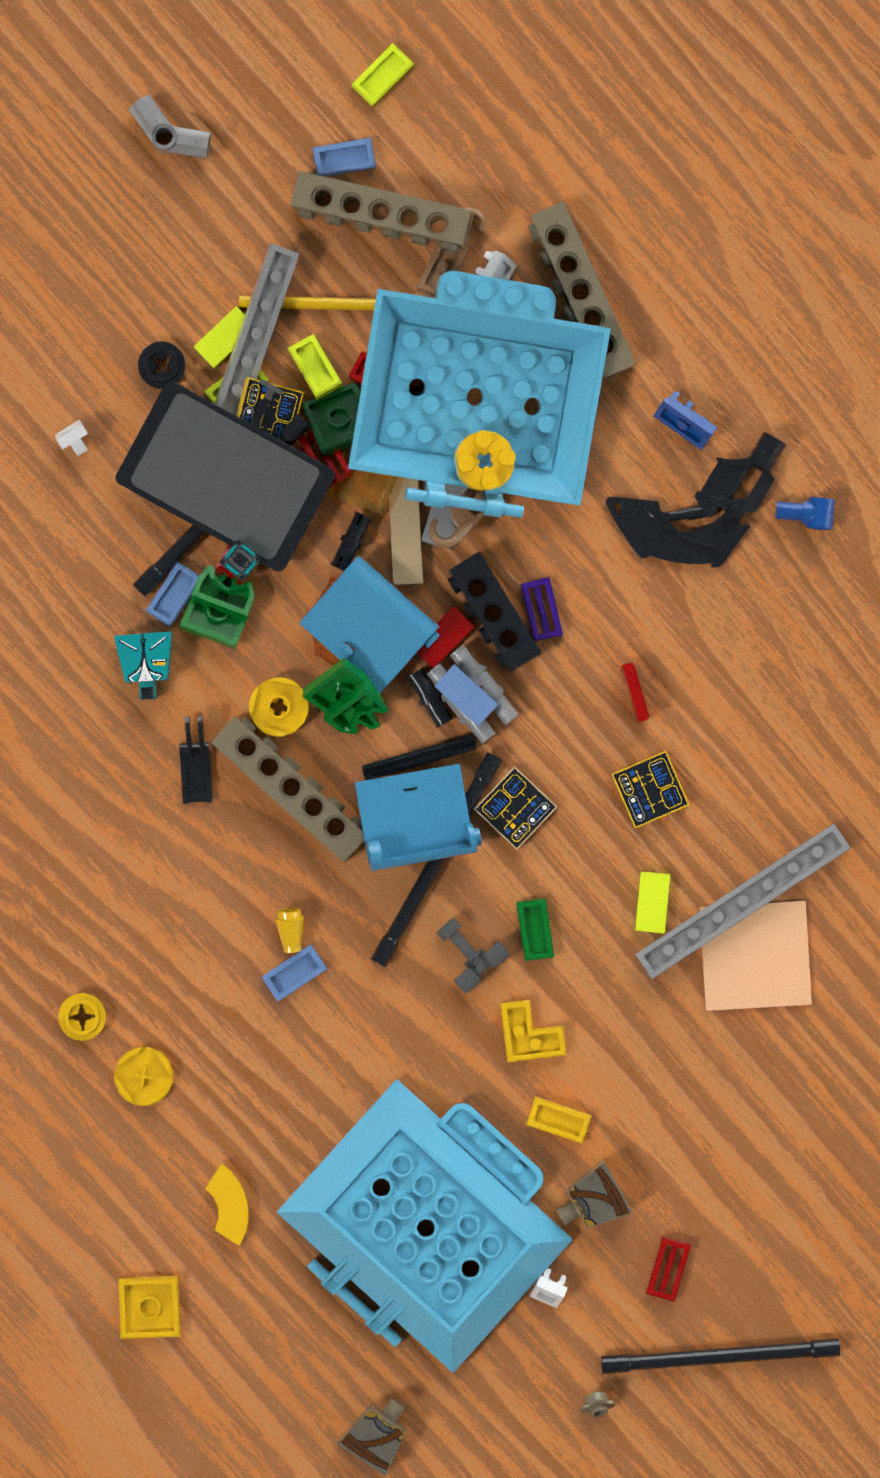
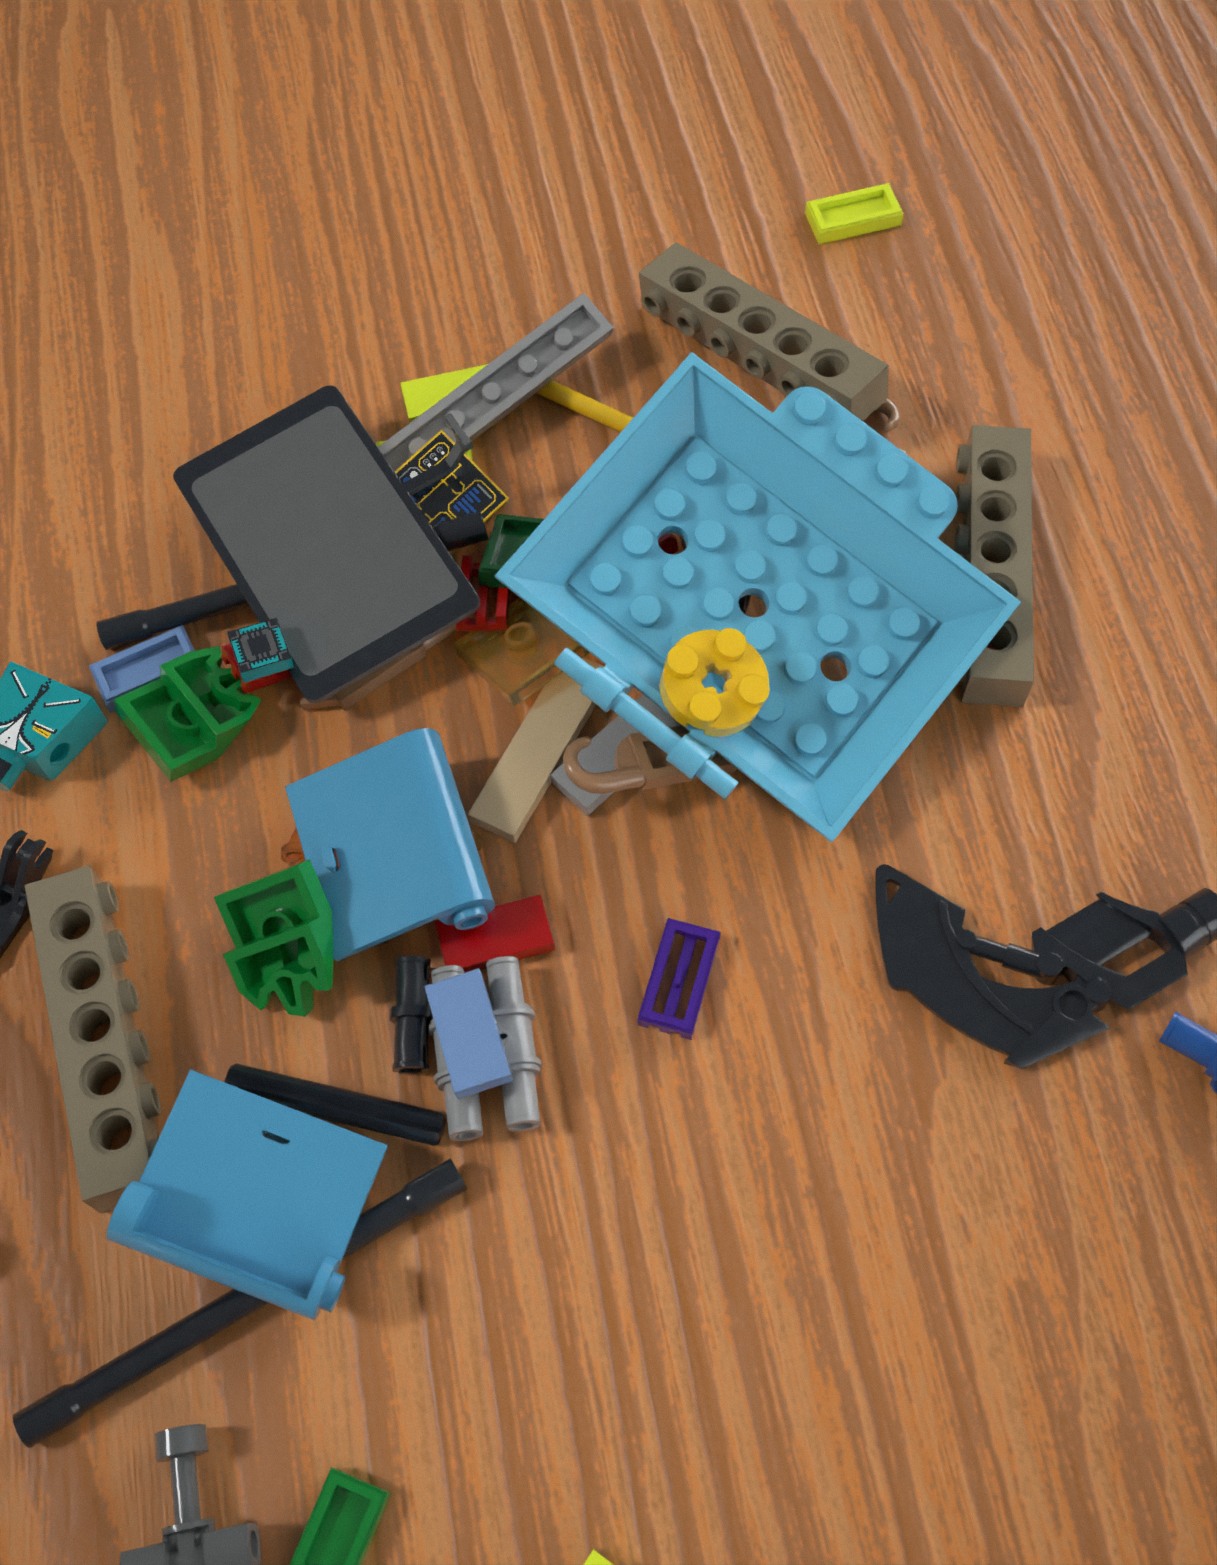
camera: 30 degrees right, 25 degrees down
(72, 436) = (164, 407): white tile -> none
(153, 122) = (534, 159): light grey piece -> none
(161, 351) = (357, 373): black gear -> none
(268, 693) = (142, 903): yellow plate -> none
(315, 366) = (545, 476): neon yellow tile -> none
(344, 157) = (761, 272): medium blue tile -> none
(351, 541) = (458, 713): black pin -> none
(477, 569) = (607, 1021): black brick -> none
(515, 808) = (438, 1288): black tile -> none
(635, 692) = (763, 1198): red tile -> none
(650, 789) = (697, 1397): black tile -> none
(684, 421) = (1072, 811): blue plate -> none

